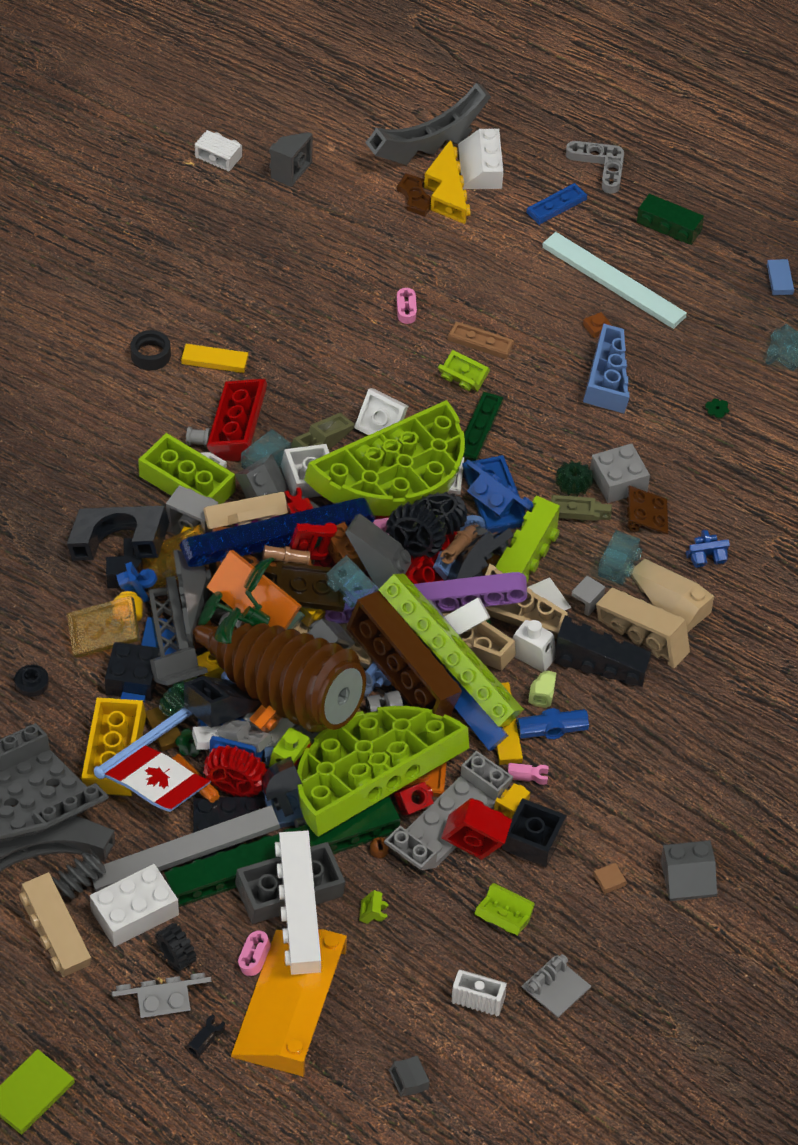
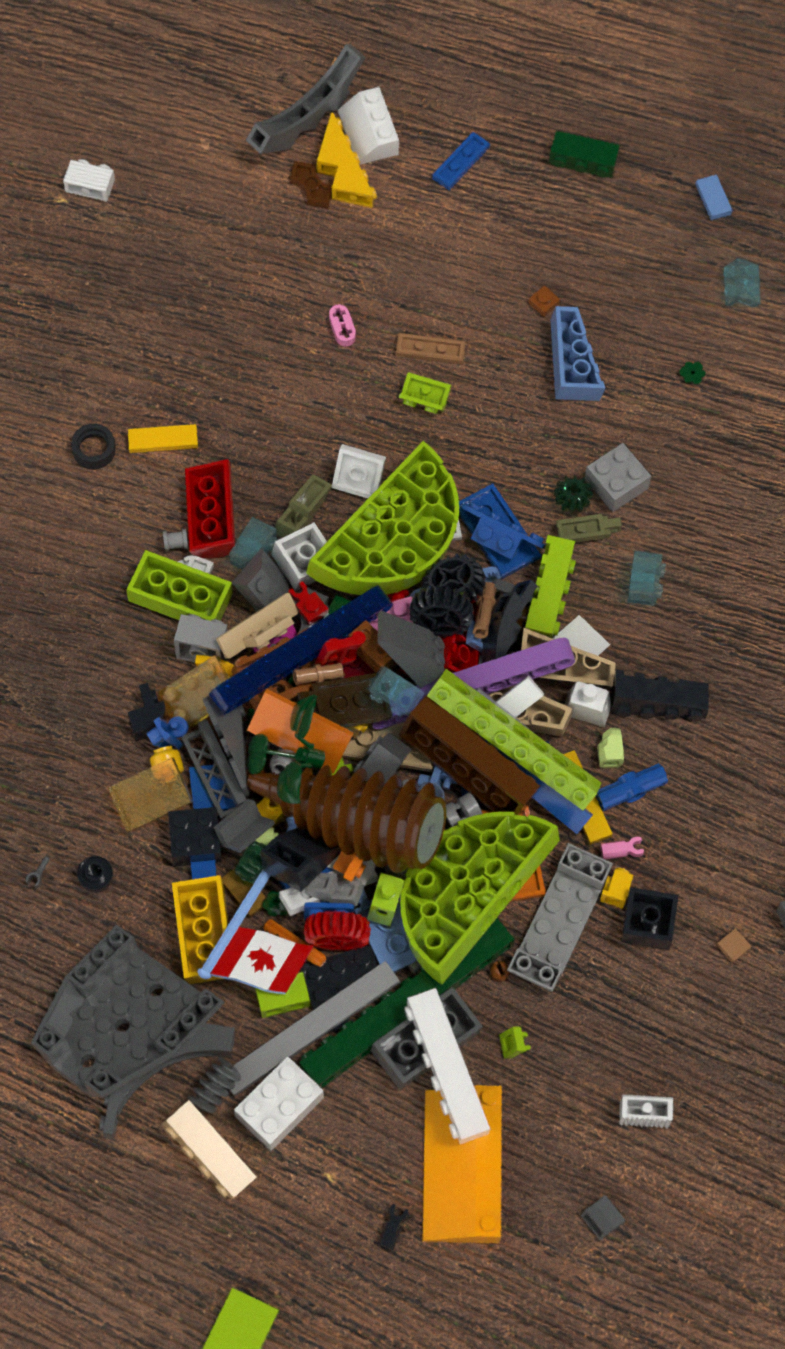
camera: 15 degrees left, 15 degrees up
(96, 523) = (104, 672): black arch -> none
(162, 998) = (338, 1195): light grey bracket -> none
(168, 824) = (275, 1004): none -> lime brick
(175, 947) = (336, 1141): black tyre -> none
(257, 953) = (406, 1123): bright pink beam -> none
(278, 781) = (387, 935): black brick -> none
(291, 157) = (170, 174): dark grey slope -> none
(405, 802) = (530, 910): red brick -> none
(476, 828) = (595, 933): red brick -> none
(481, 425) = (460, 450): dark green tile -> none
(505, 909) = (644, 1010): lime bracket -> none
(556, 985) = (715, 1079): light grey hinge -> none
(589, 592) = (626, 628): light grey panel -> none
(608, 160) = (500, 94): light grey beam -> none
(614, 280) = (546, 241): light aqua tile -> none
(645, 625) = (691, 650): tan wedge -> none
(646, 510) = (655, 514): reddish brown hinge -> none
(673, 592) = (711, 609): tan wedge -> none
(708, 545) = (739, 543): blue hips -> none

